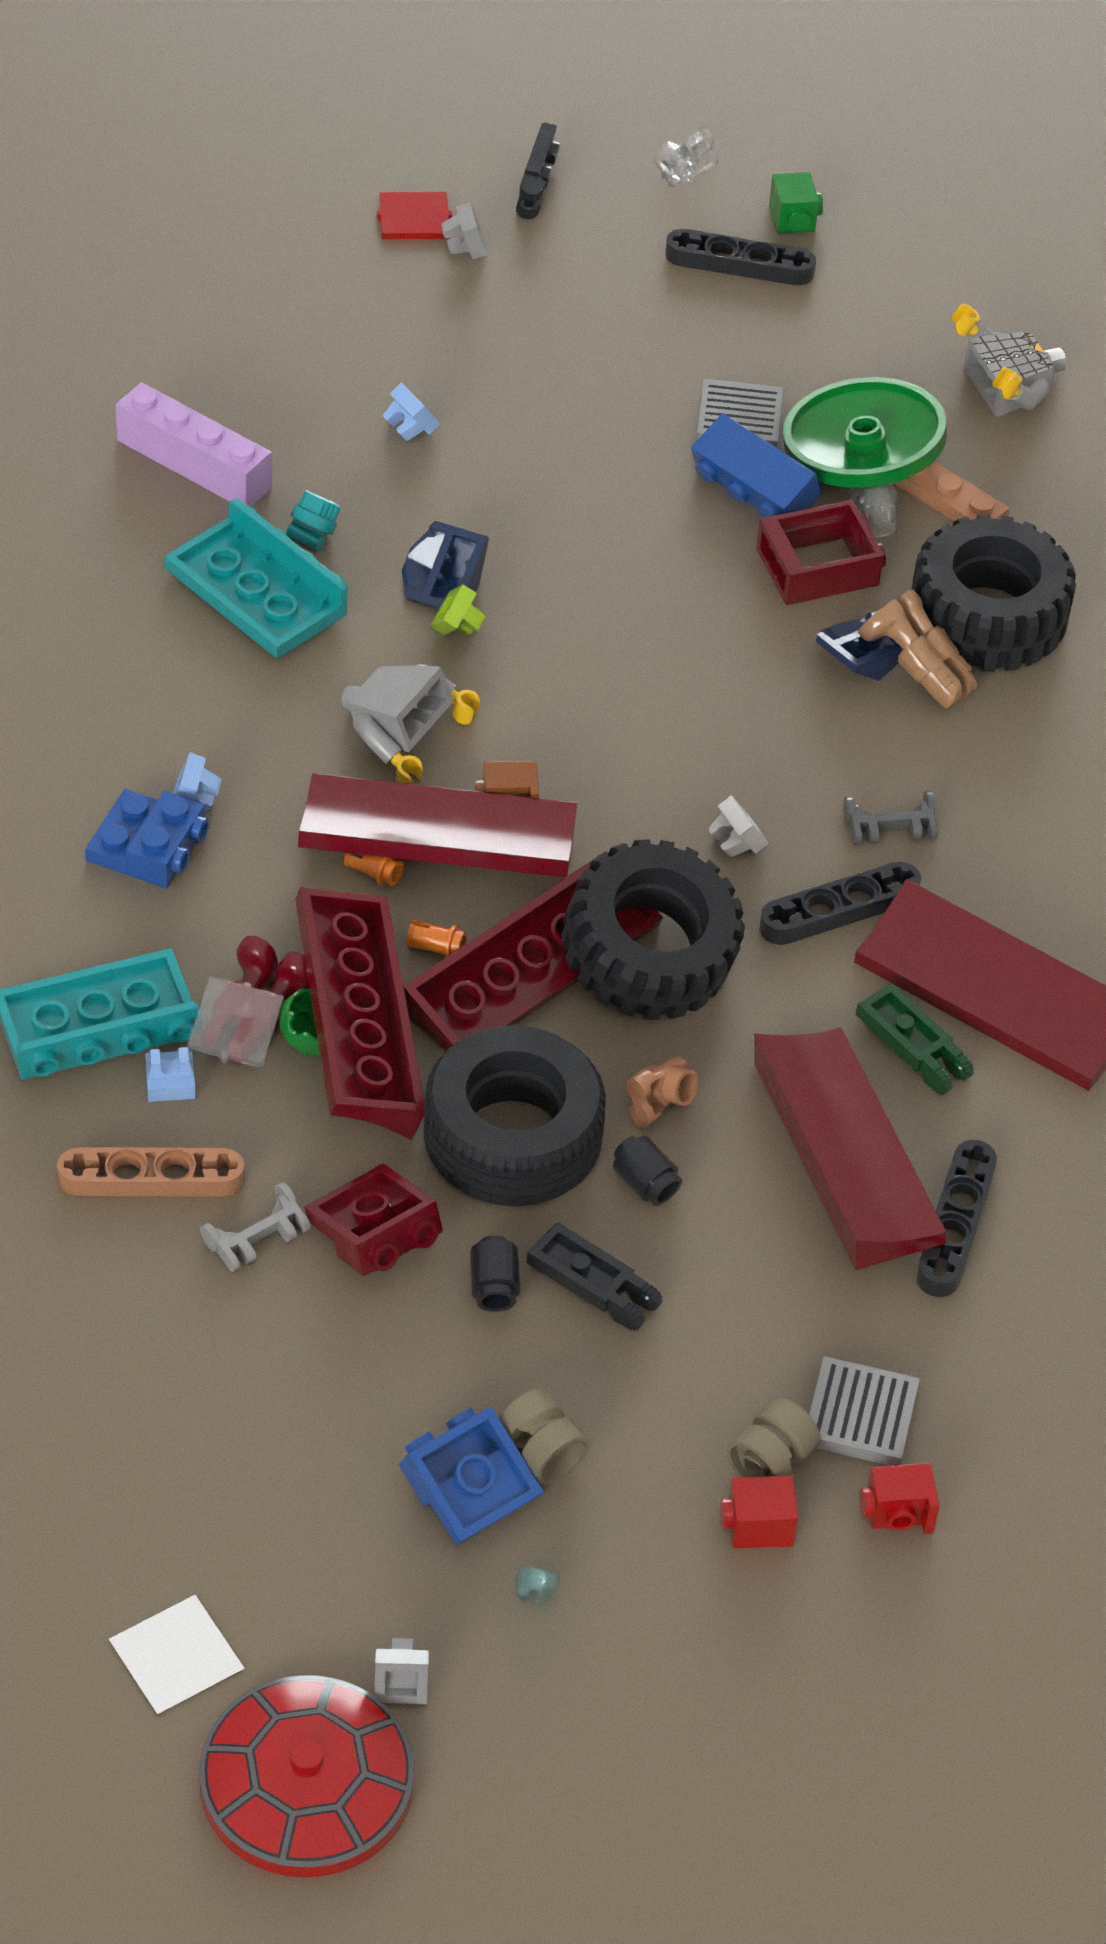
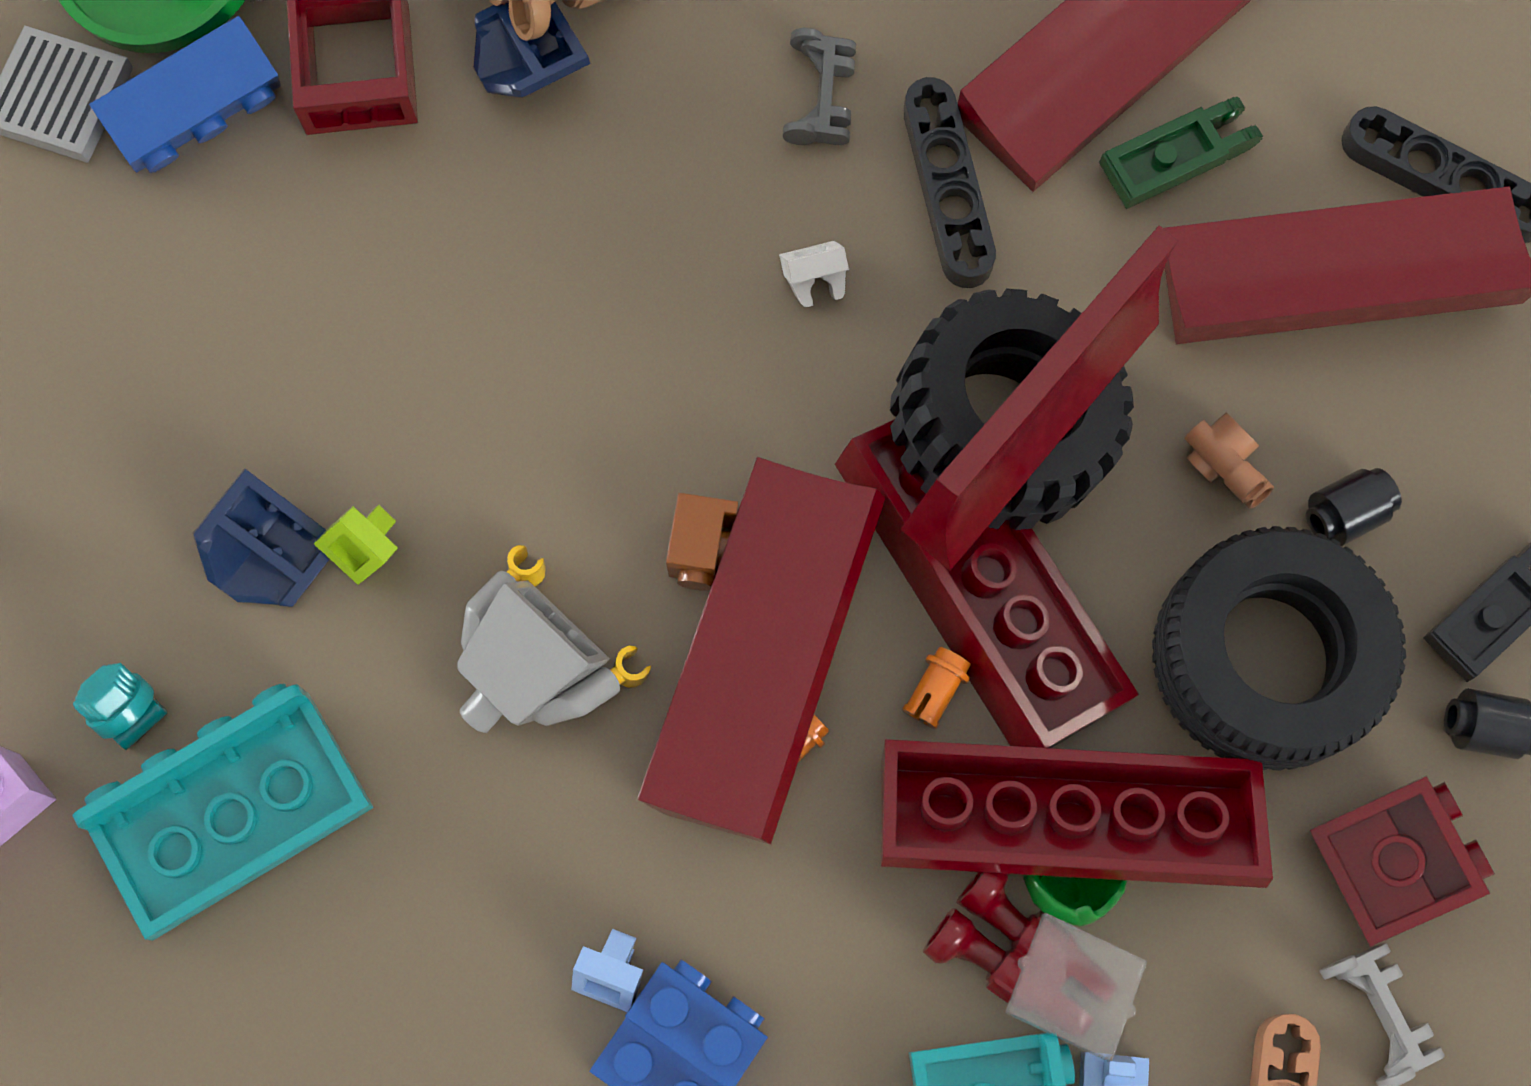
camera: 75 degrees left, 25 degrees up
(644, 889) = (1042, 407): none -> dark red arch

